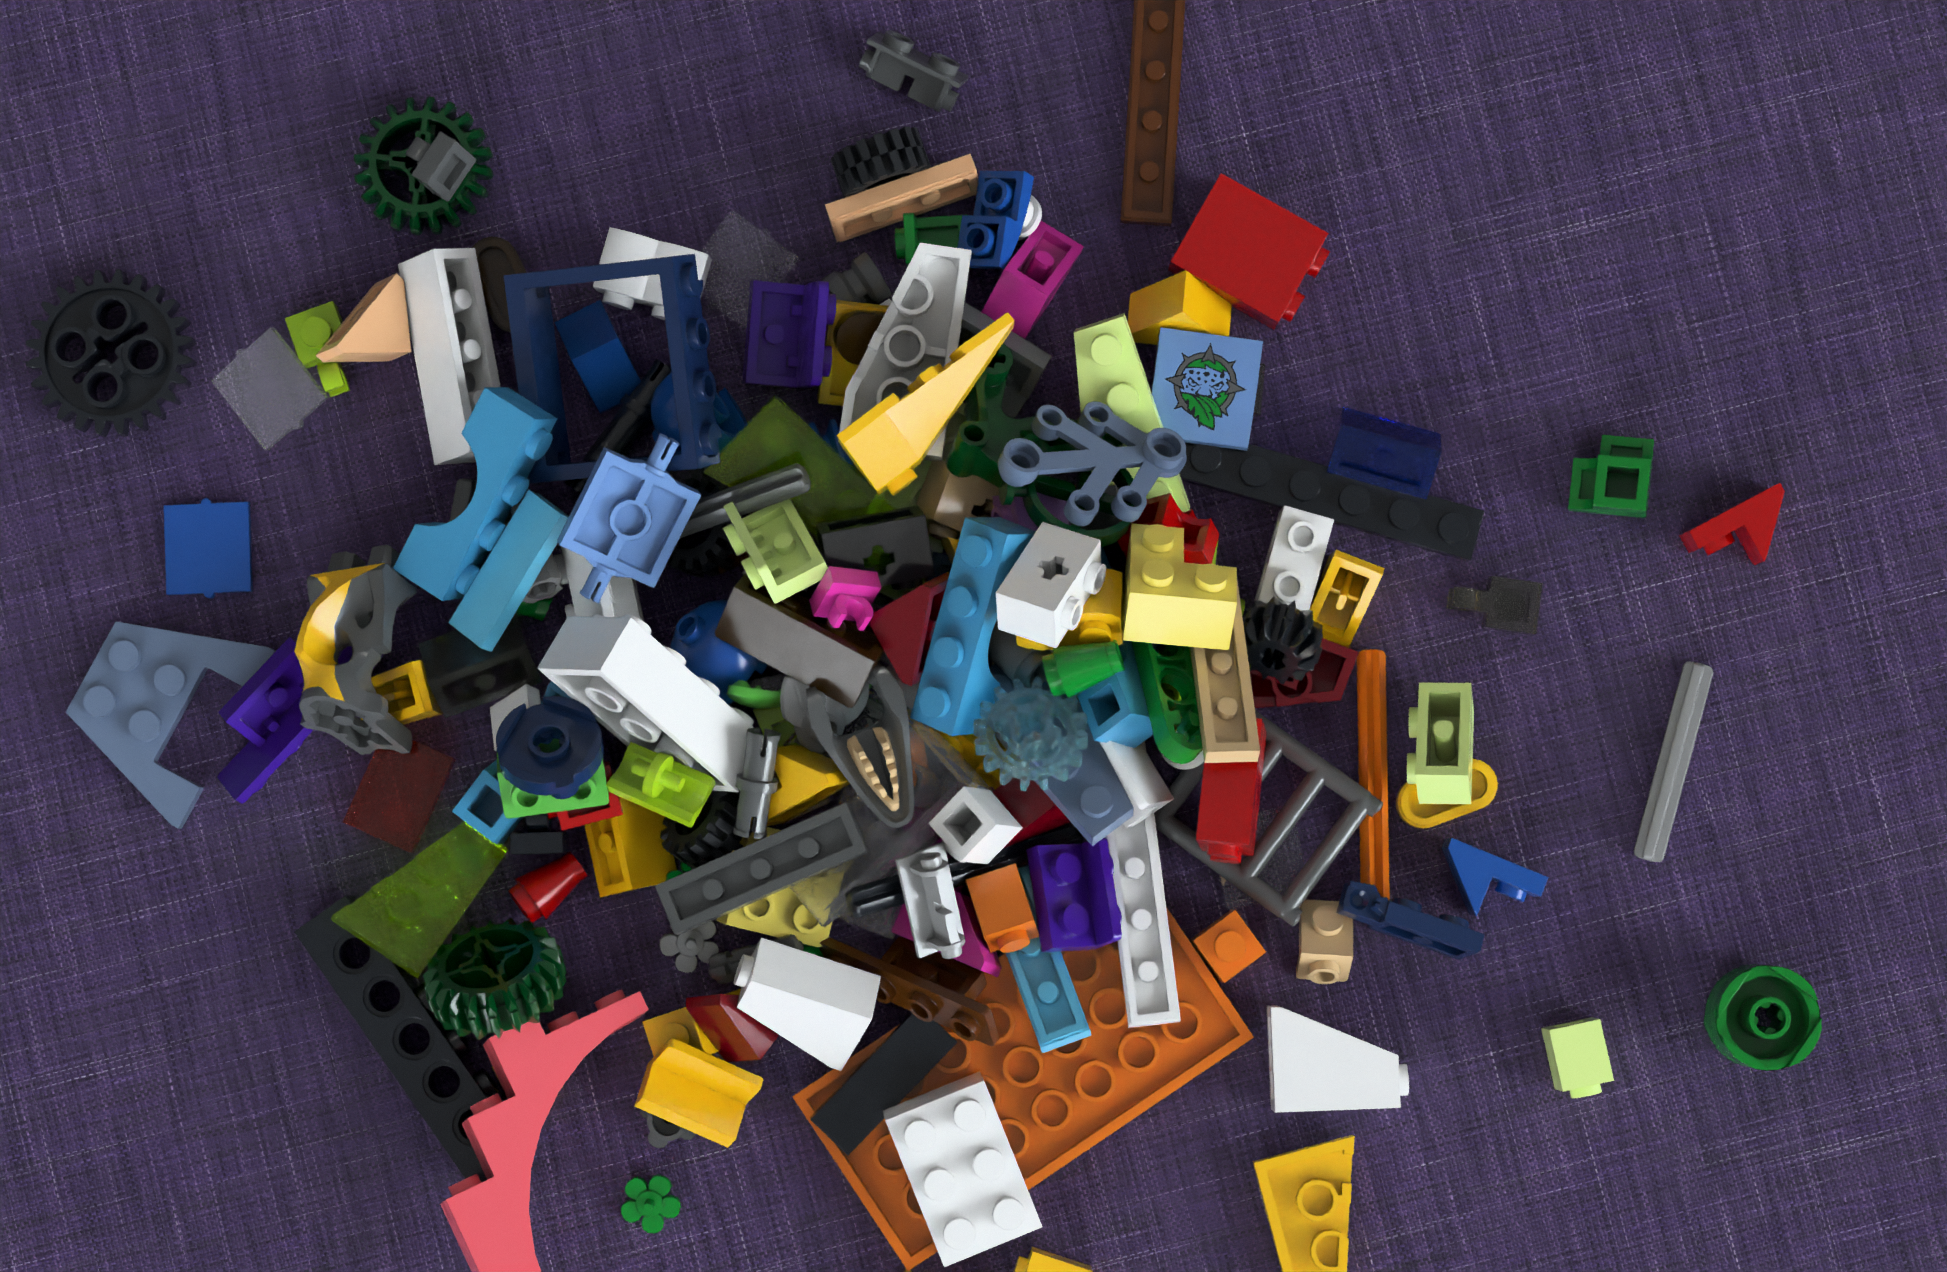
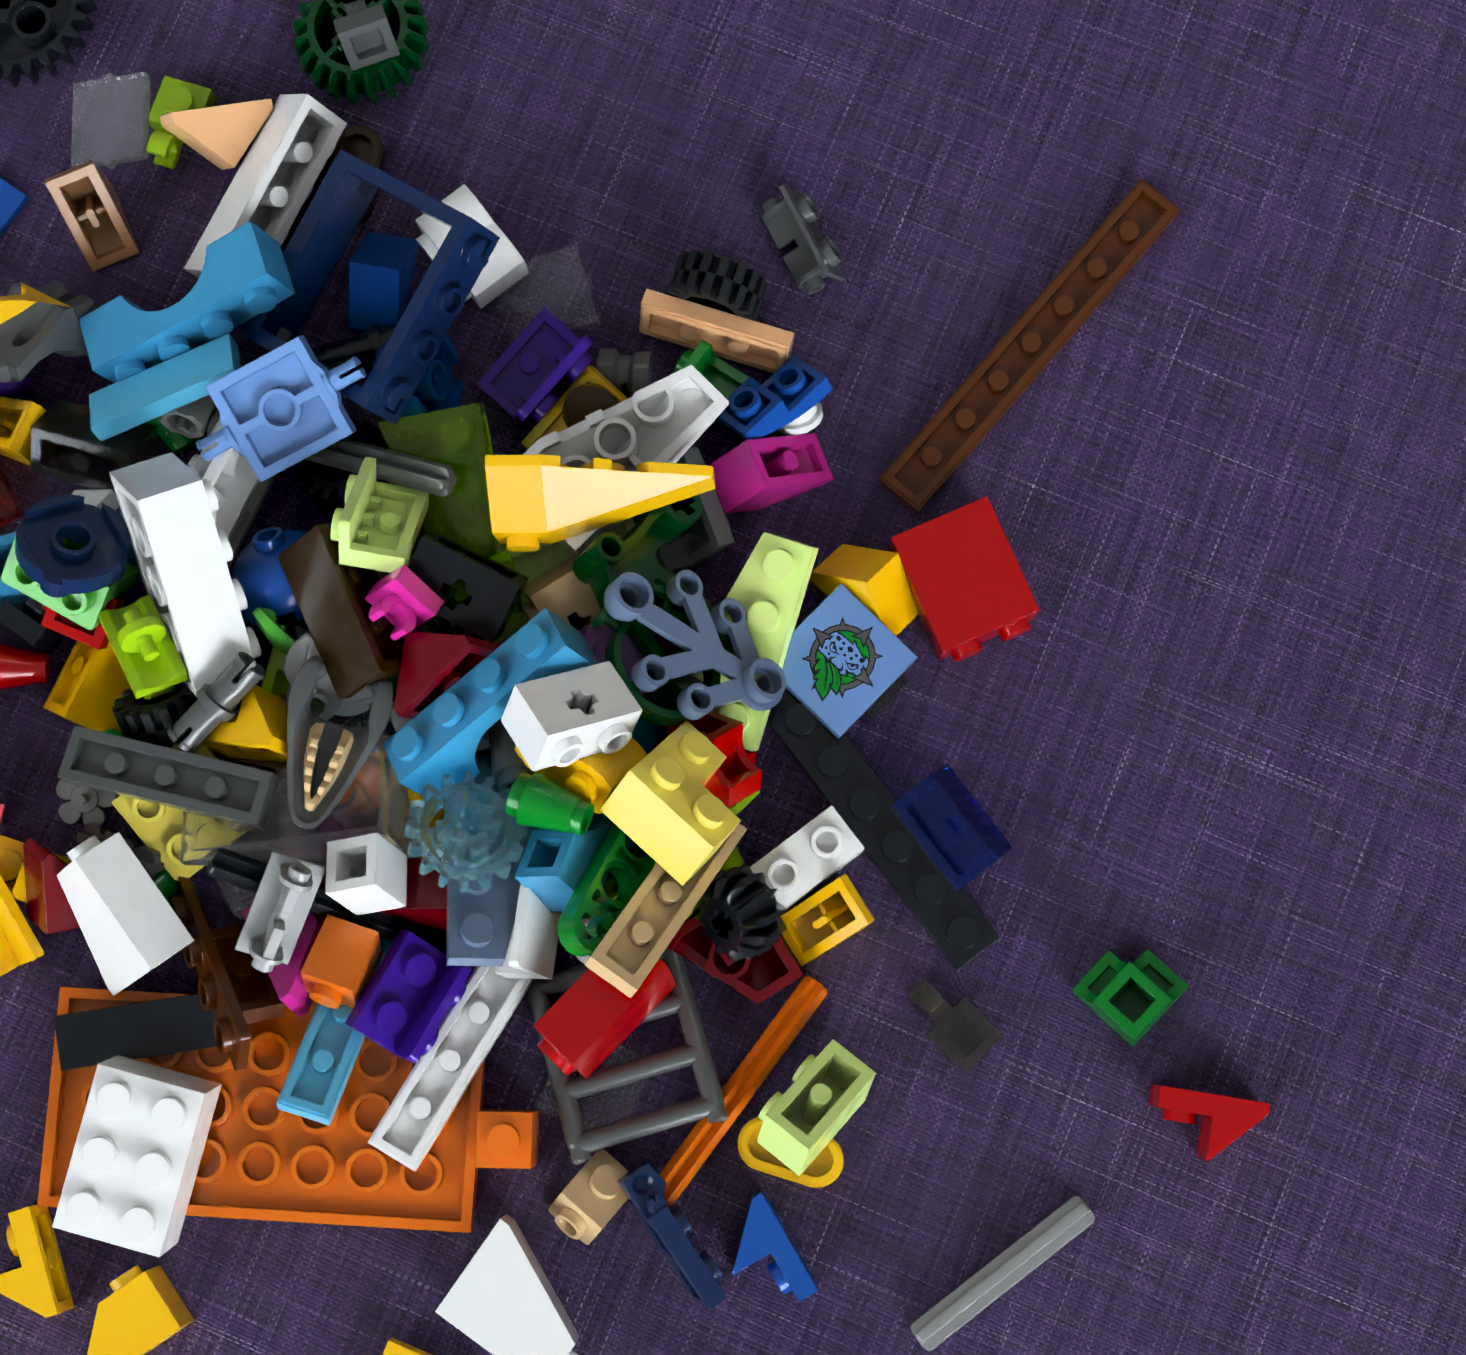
camera: 45 degrees right, 5 degrees down
(325, 477) = (93, 214): none -> medium nougat slope

